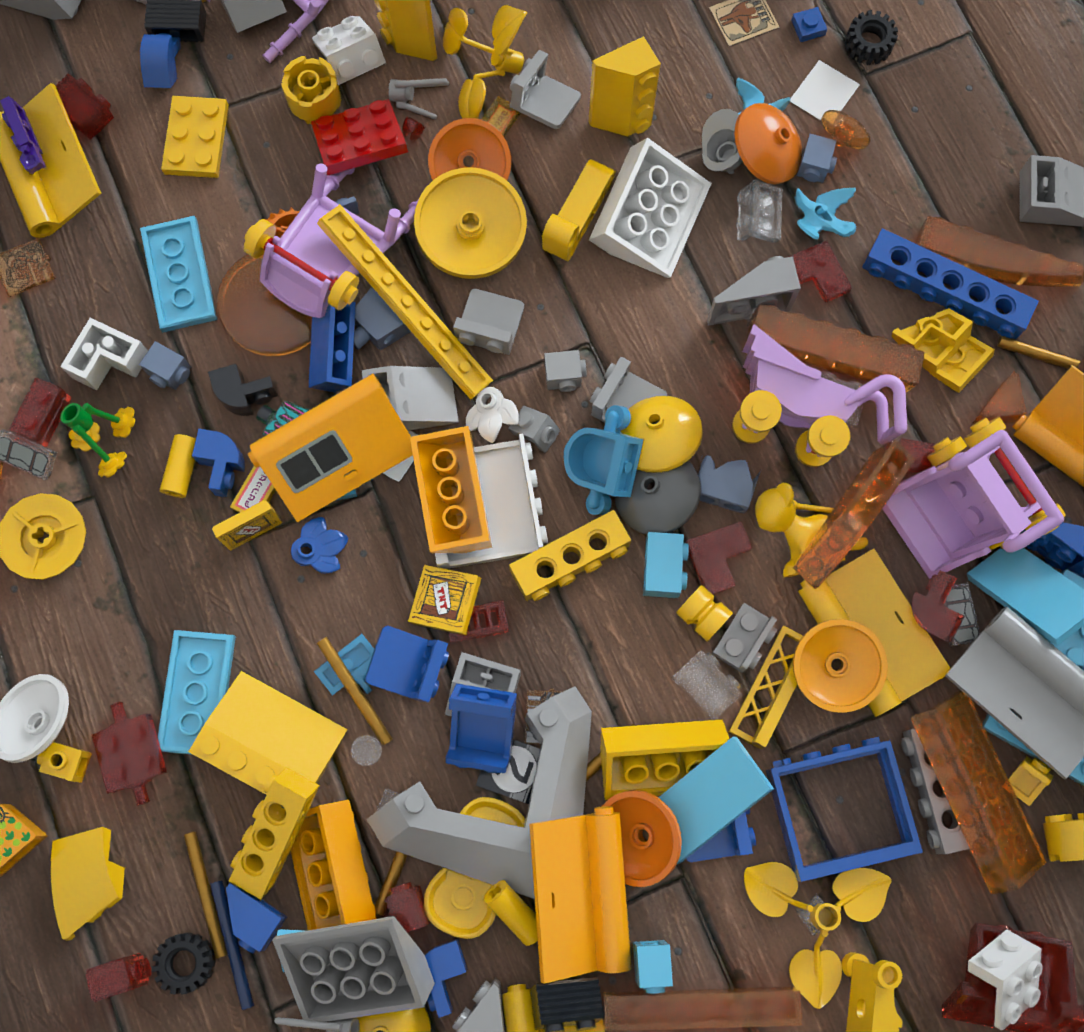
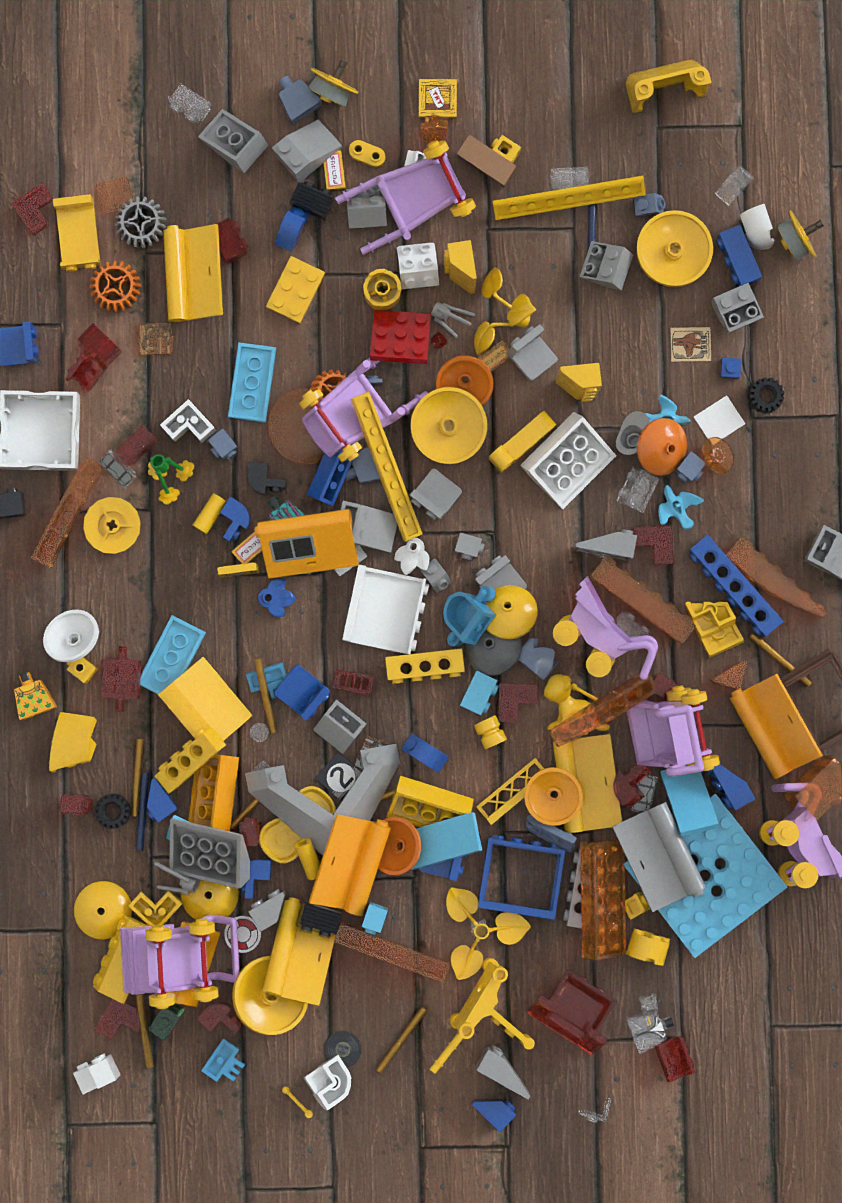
camera: 20 degrees right, 10 degrees up
(23, 135) = (186, 254): dark purple hinge -> none
(444, 599) = (339, 661): yellow tile -> none
(450, 491) = (367, 599): light orange slope -> none
(481, 728) = (330, 748): blue panel -> none
(623, 680) = (425, 752): none -> blue brick
(708, 685) = (473, 775): clear bracket -> none
(744, 638) = (508, 756): light grey bracket -> none
(857, 725) = (551, 834): none -> sand blue hinge
(1014, 970) = (571, 1003): white bracket -> none

